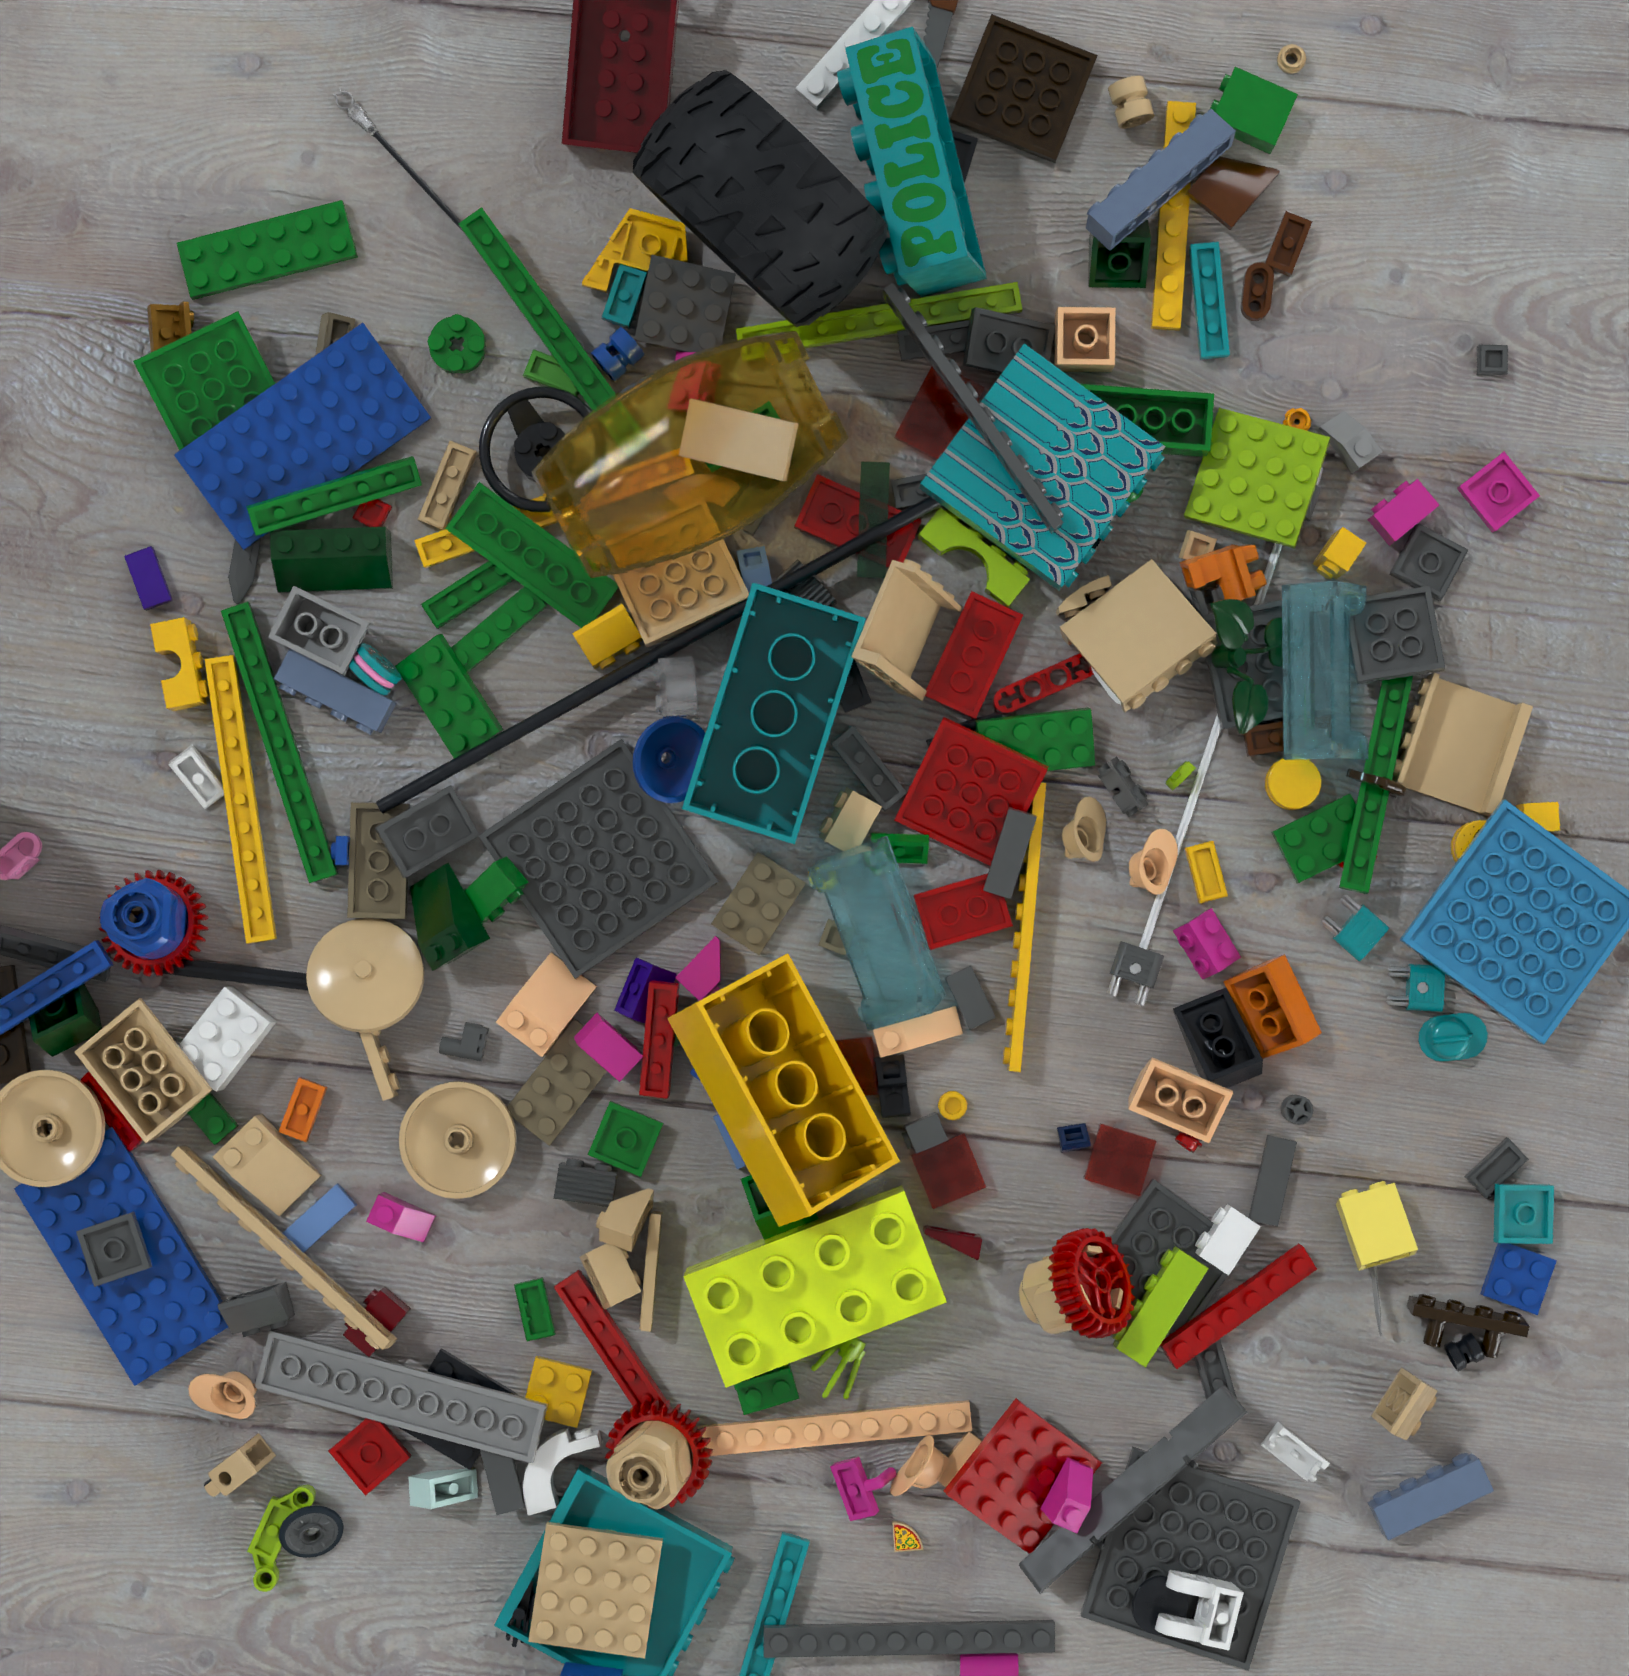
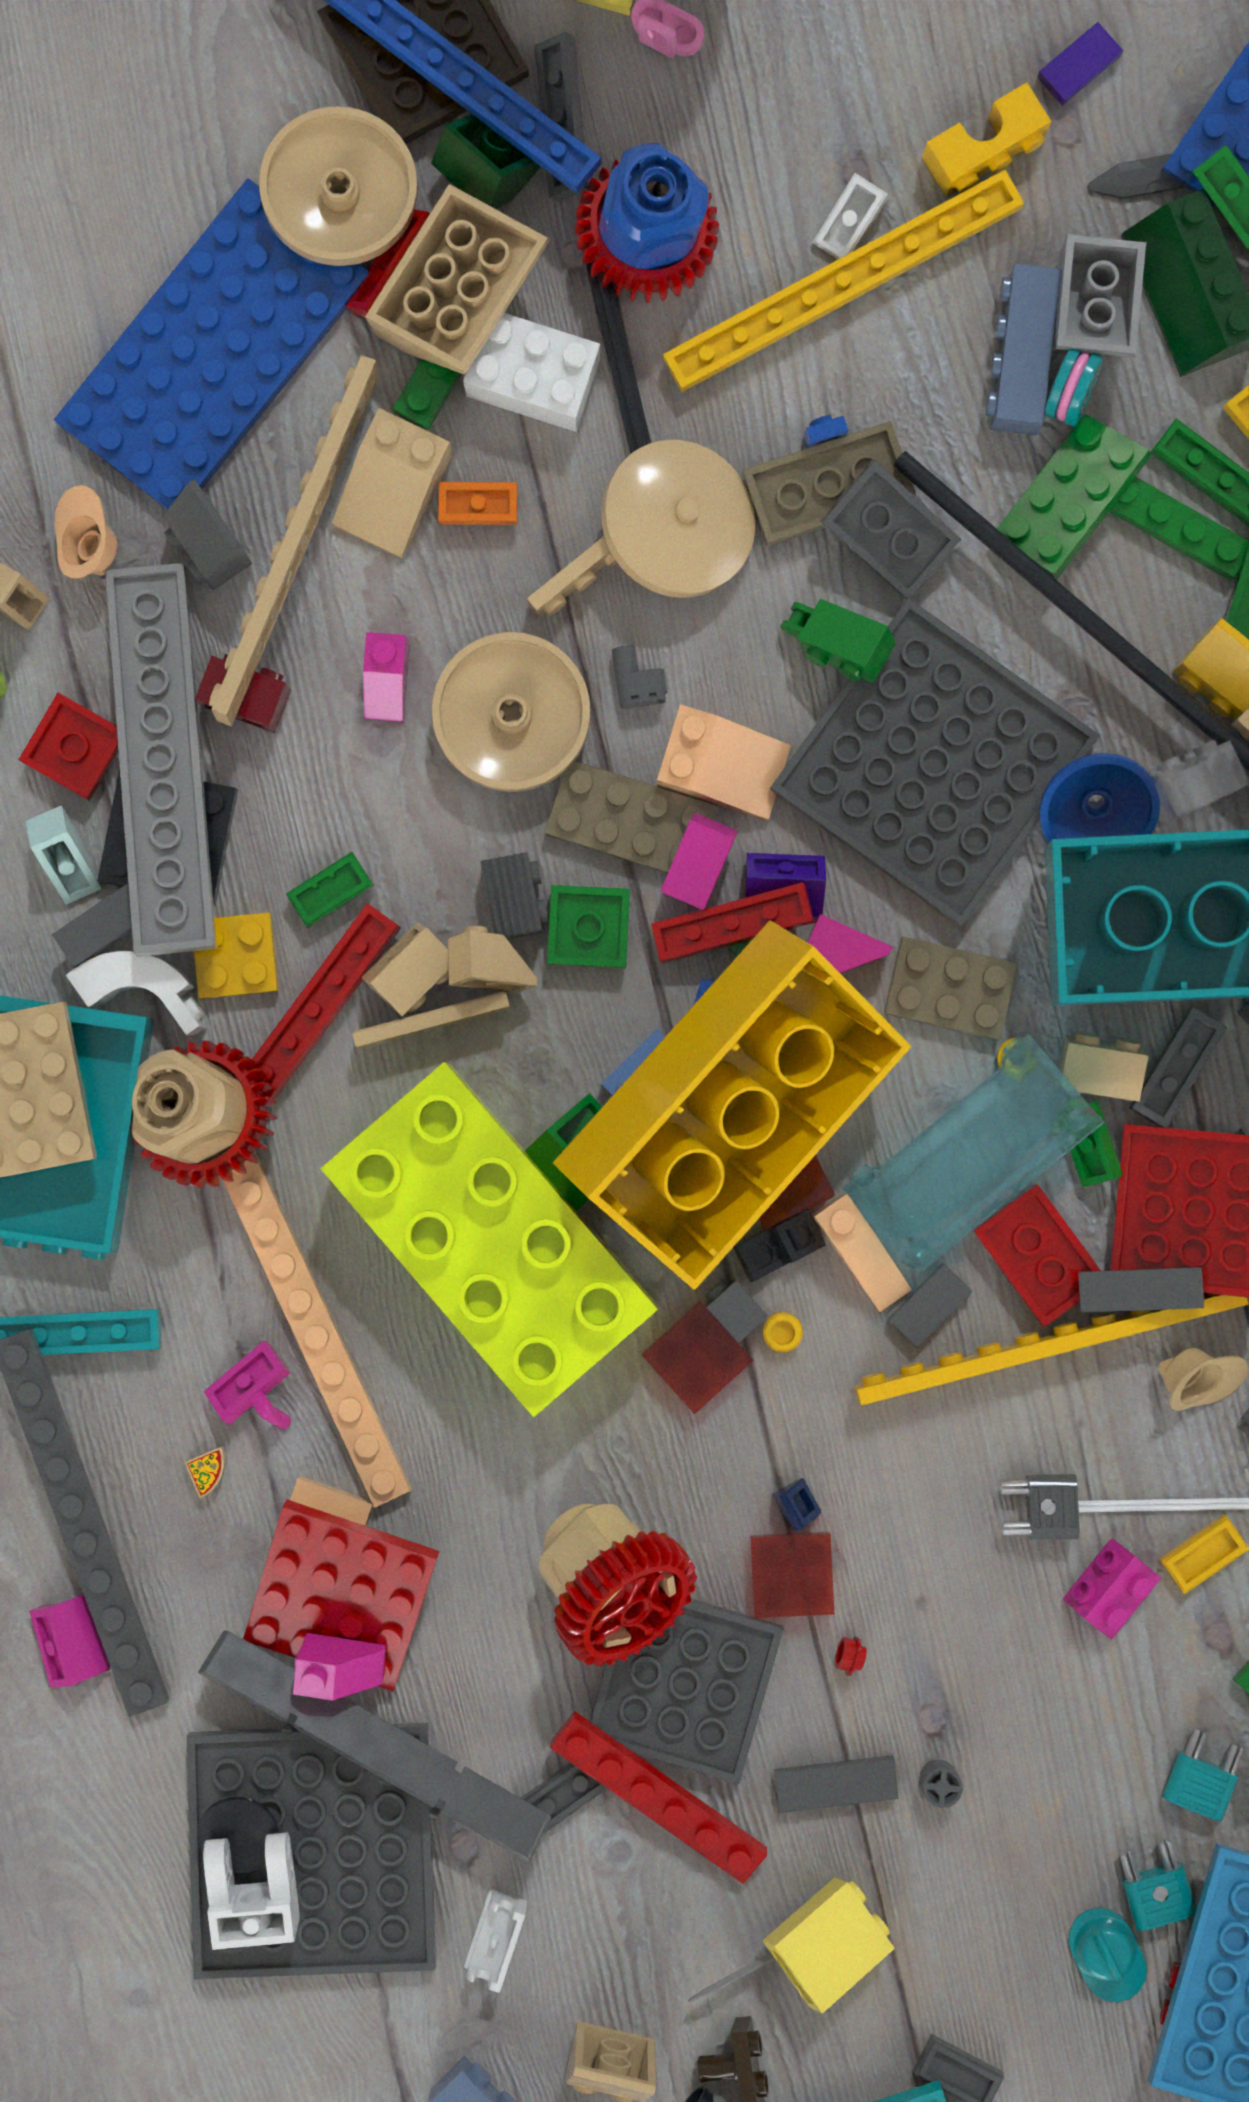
camera: 70 degrees right, 0 degrees up
(114, 1249) = (217, 327): dark grey plate -> none
(279, 742) = (933, 303): green plate -> none
(320, 1218) = (348, 576): medium blue tile -> none
(445, 918) = (787, 594): dark green slope -> none
(767, 1390) = (333, 1223): green bracket -> none
(831, 938) = (941, 1098): dark tan plate -> none
(848, 1351) = (421, 1311): lime plant -> none
(921, 1469) = (303, 1460): light nougat piece -> none
(961, 1241) = (613, 1409): dark red slope -> none
(1154, 863) = (1192, 1483): light nougat piece -> none
(1160, 1305) = (626, 1697): lime brick -> none
(1179, 1099) = (903, 1626): light nougat slope -> none
(1218, 1039) = (991, 1650): black slope -> none
(1226, 1238) = (743, 1753): white brick -> none
(1273, 1007) = (1061, 1704): orange slope -> none

